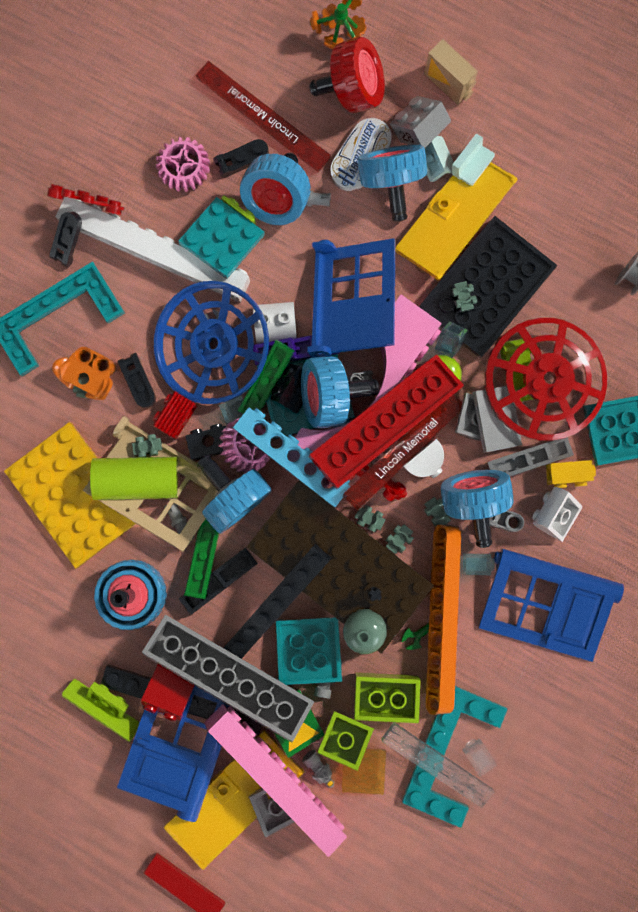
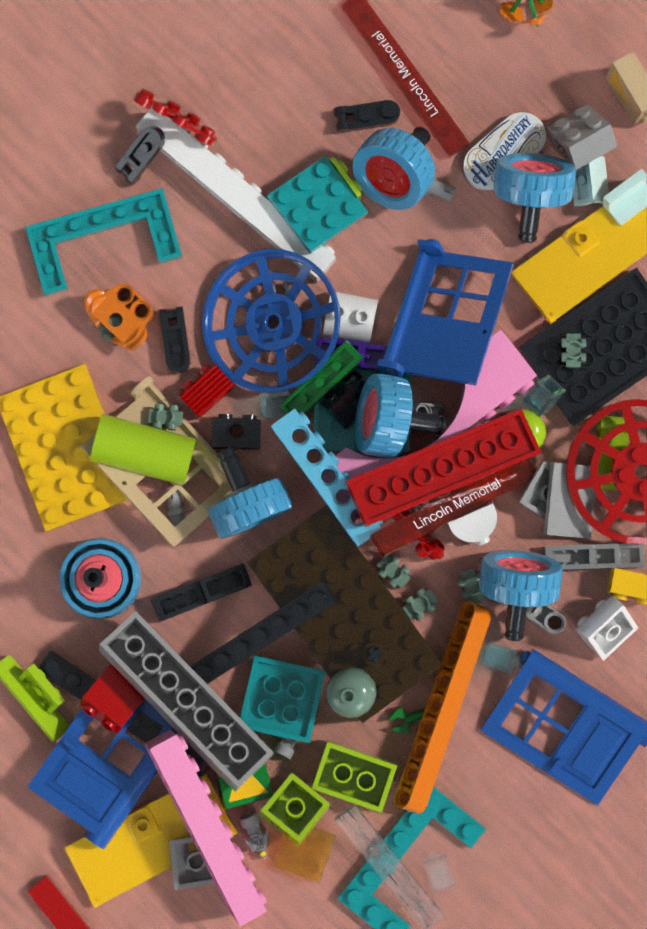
camera: 10 degrees right, 0 degrees up
(169, 159) = (305, 109): bright pink gear -> none
(202, 561) = (191, 564): green tile -> none
(241, 453) = (270, 454): bright pink gear -> none
(354, 76) = (522, 63): red wheel -> none

